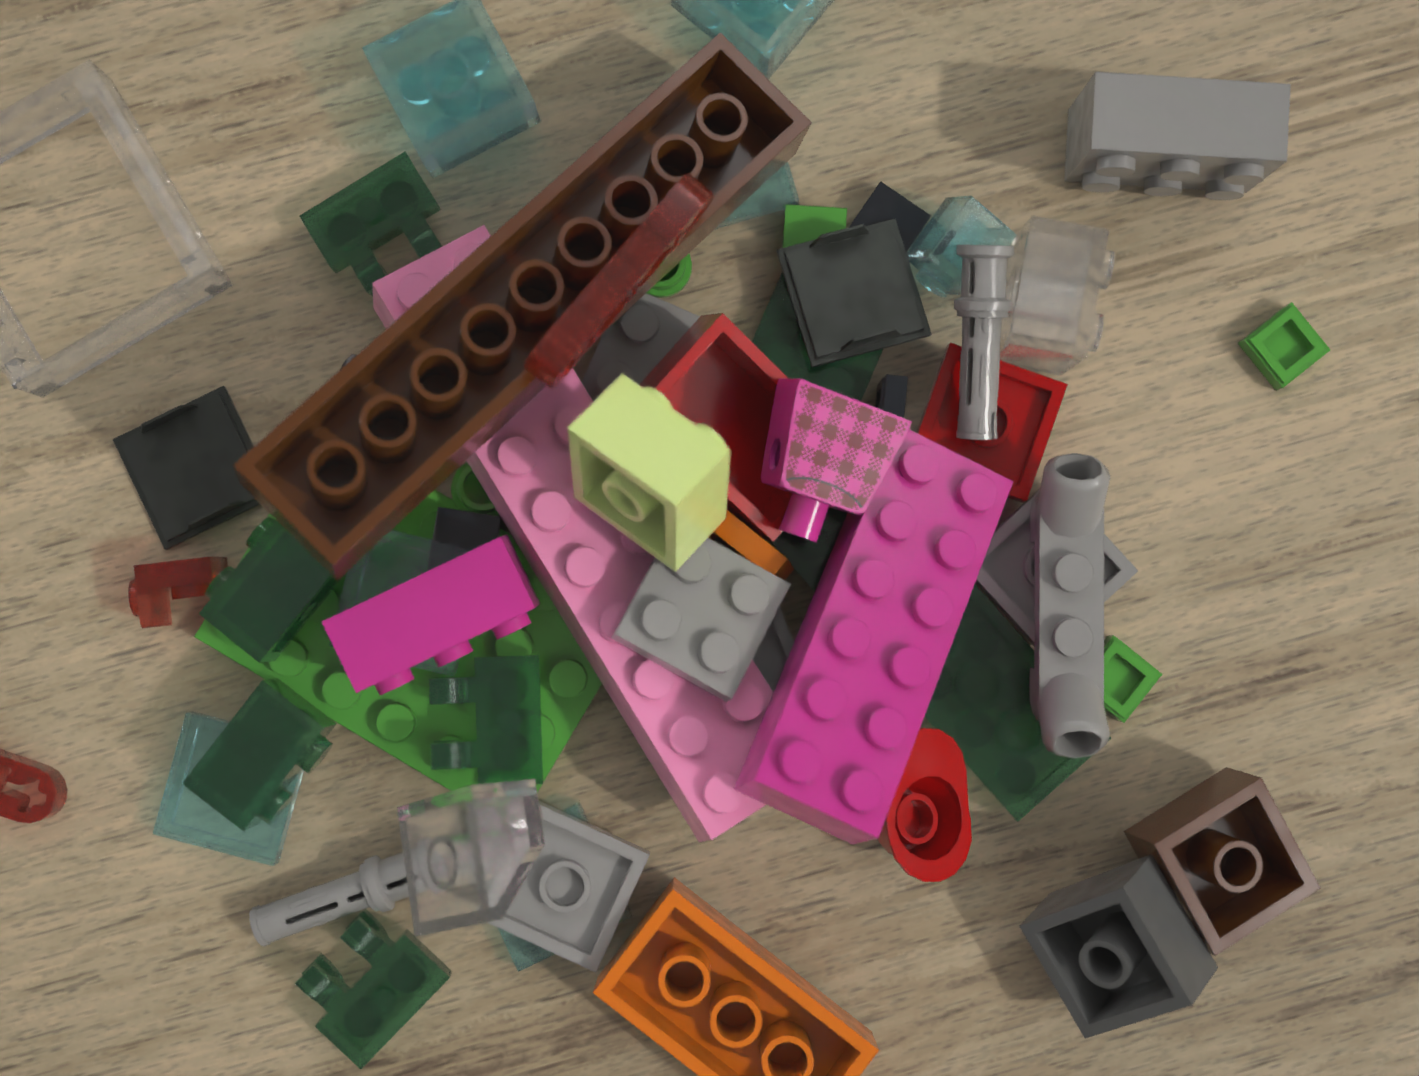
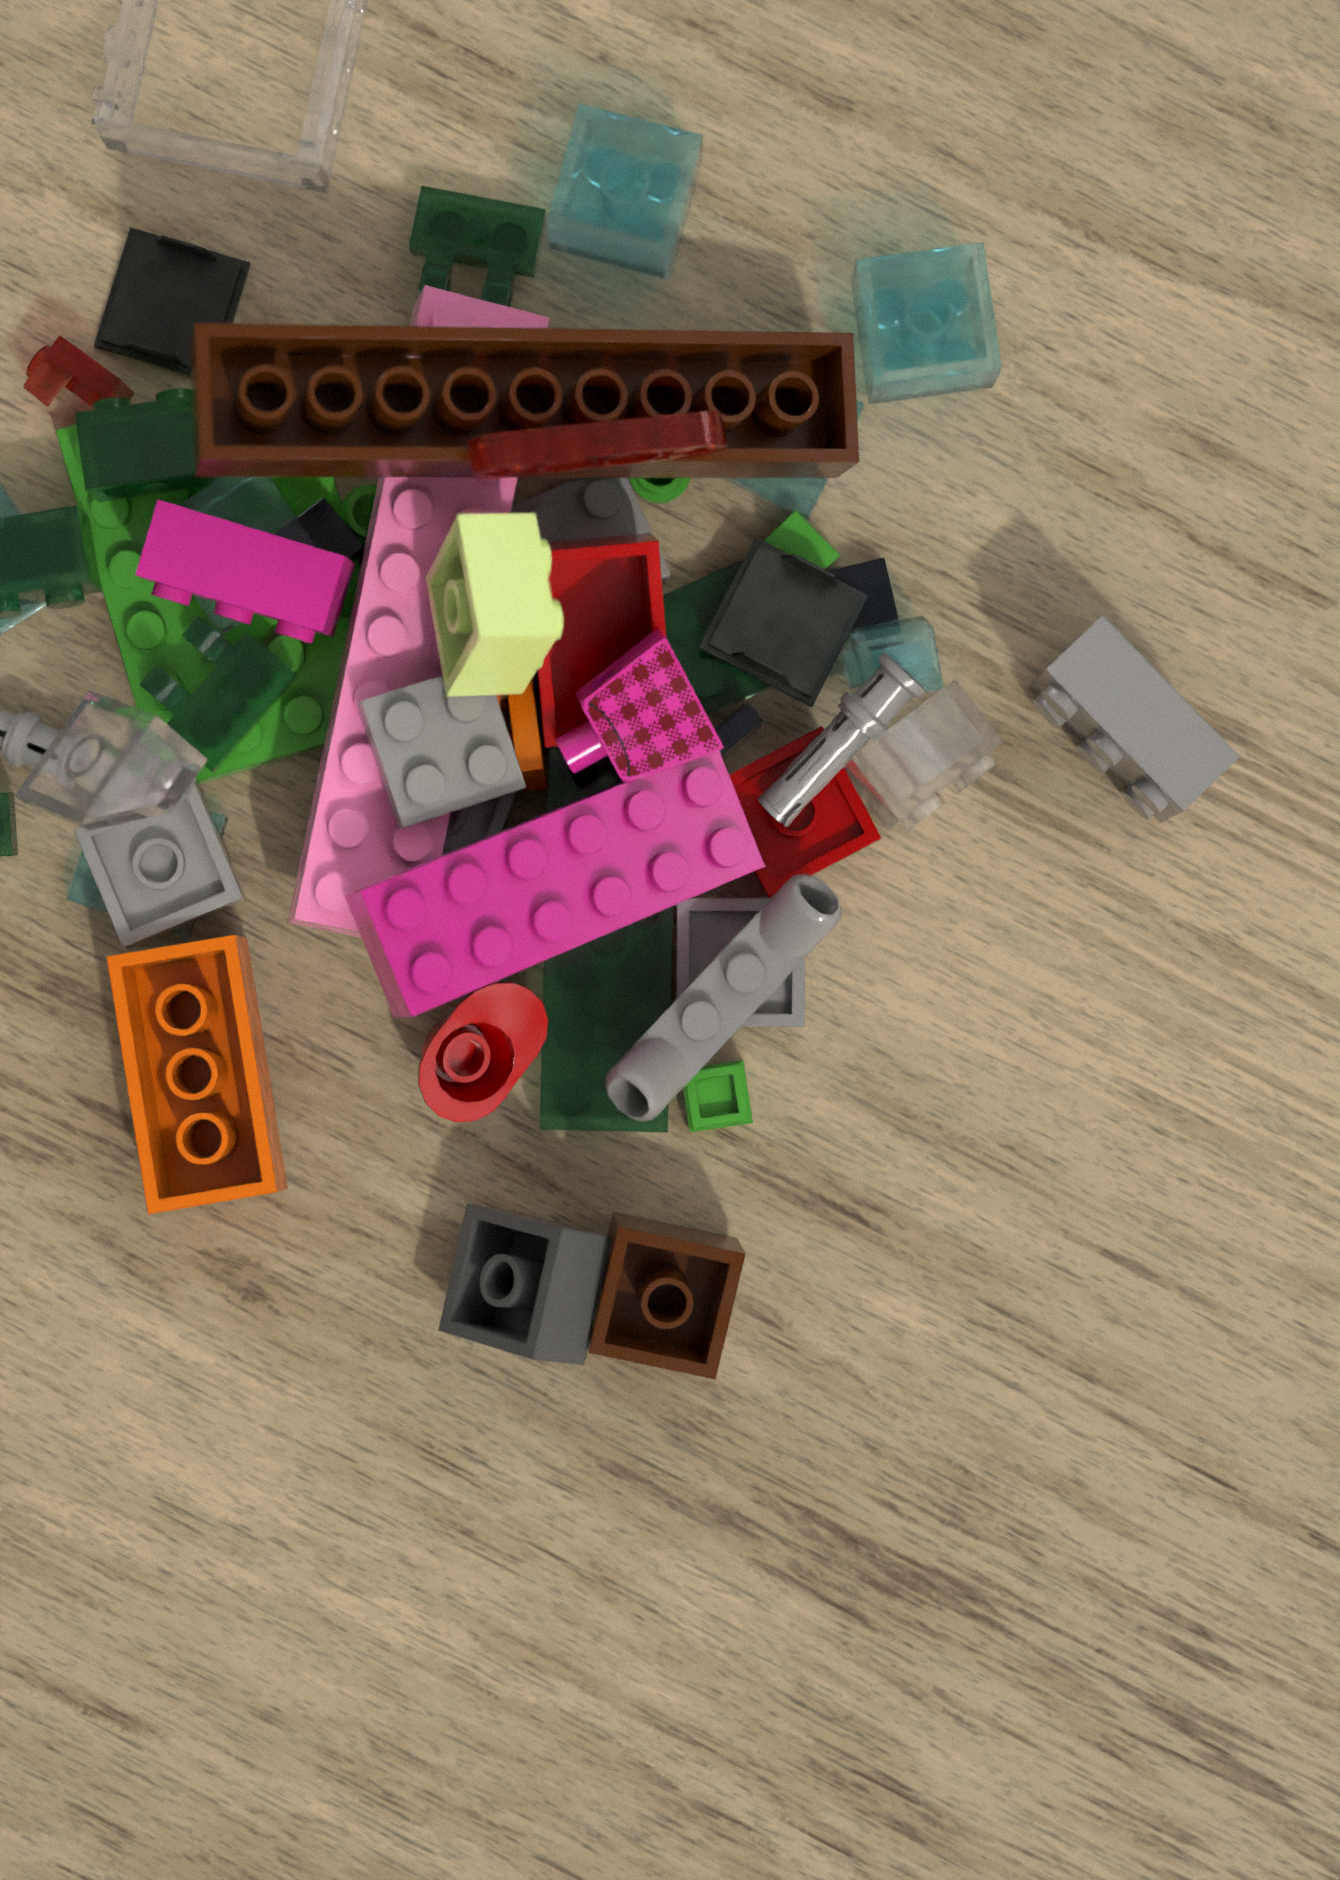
camera: 45 degrees right, 0 degrees up
(1284, 346) = (1077, 963): bright green tile -> none

